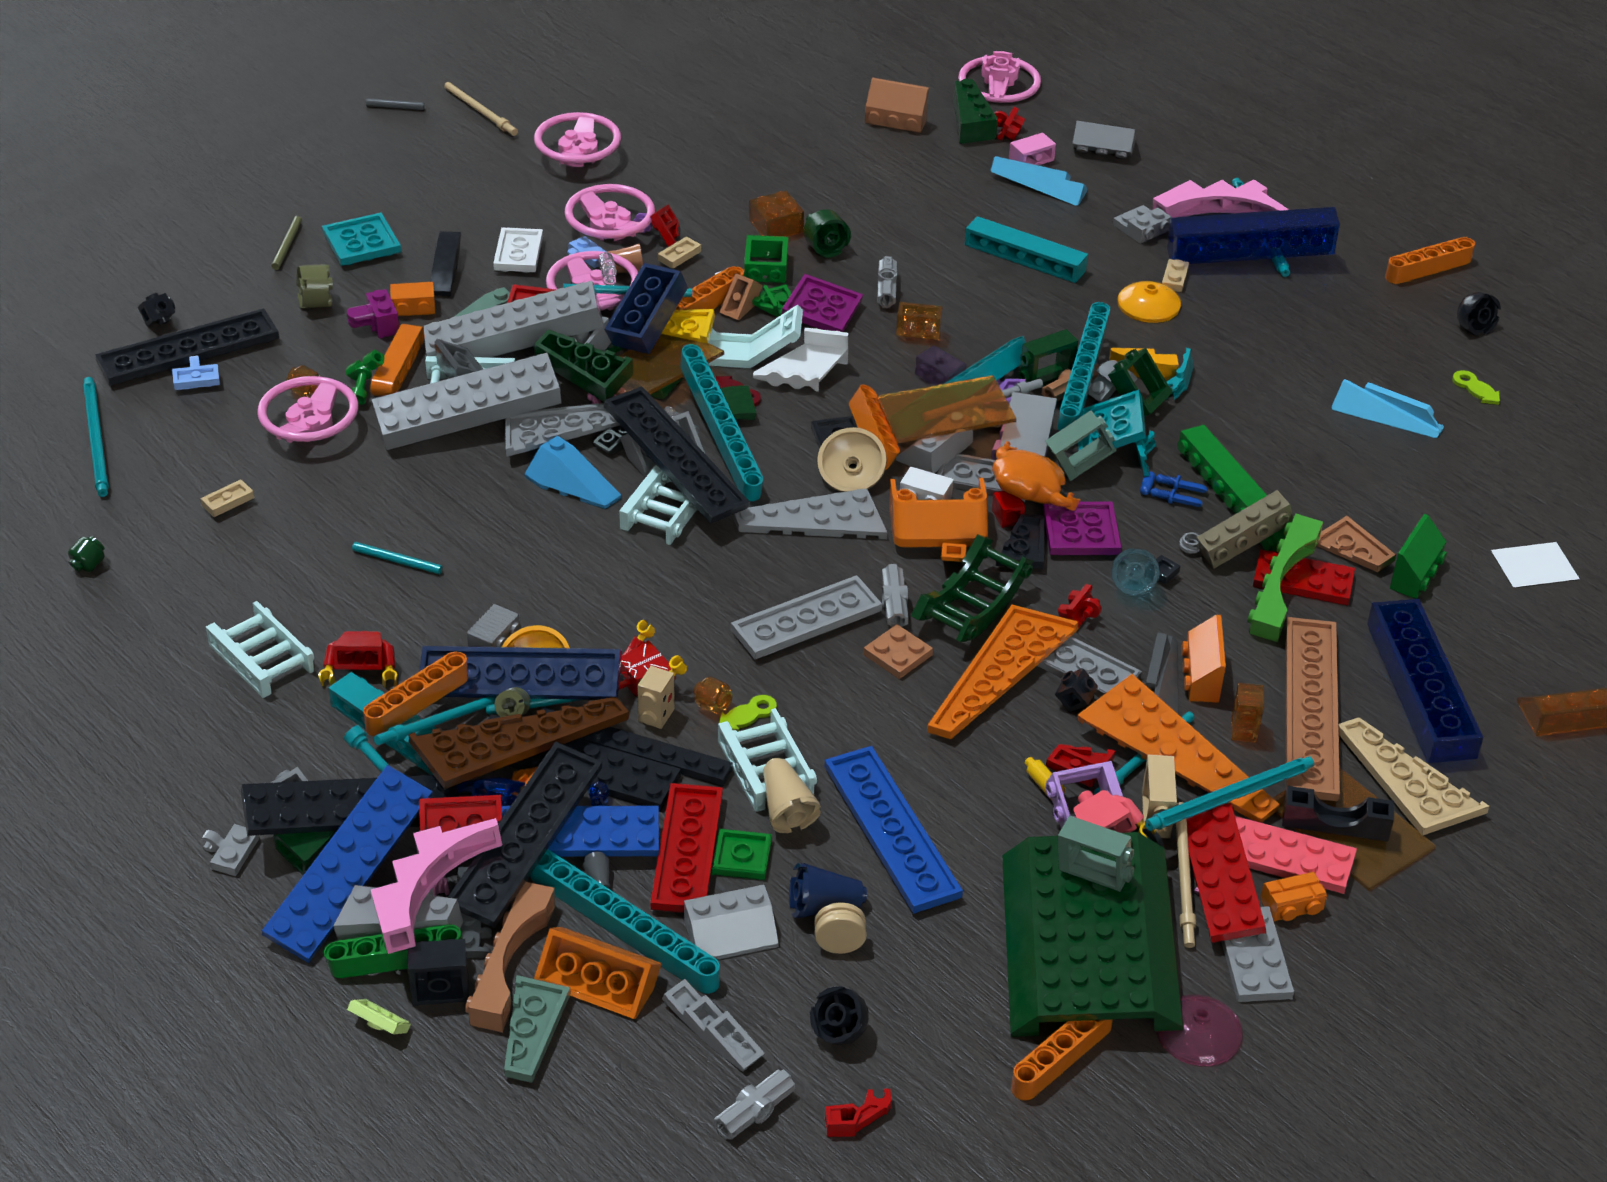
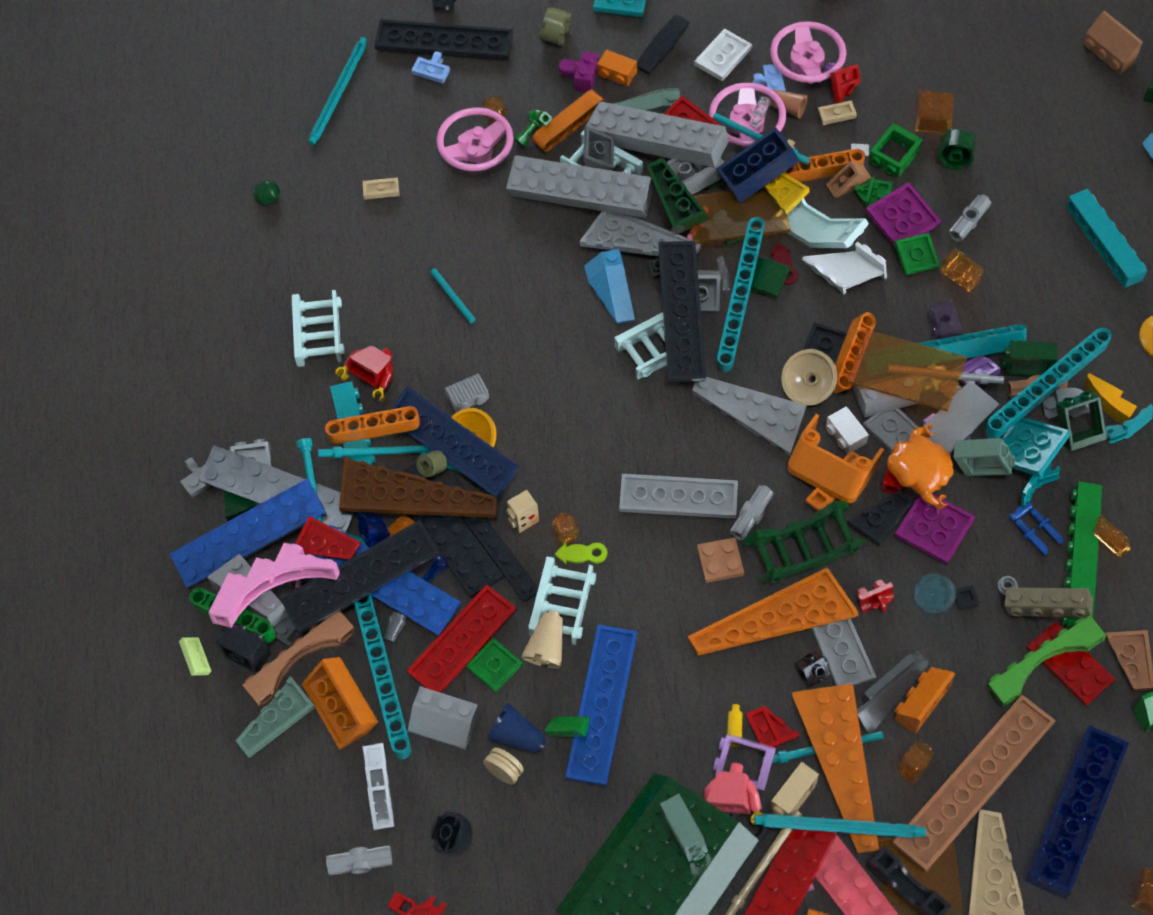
camera: 40 degrees right, 20 degrees up
(641, 656) = (539, 477): red torso -> none
(863, 328) = (916, 254): none -> green tile
(877, 861) = (568, 726): none -> green slope
(1249, 460) = (1111, 536): none -> clear orange slope

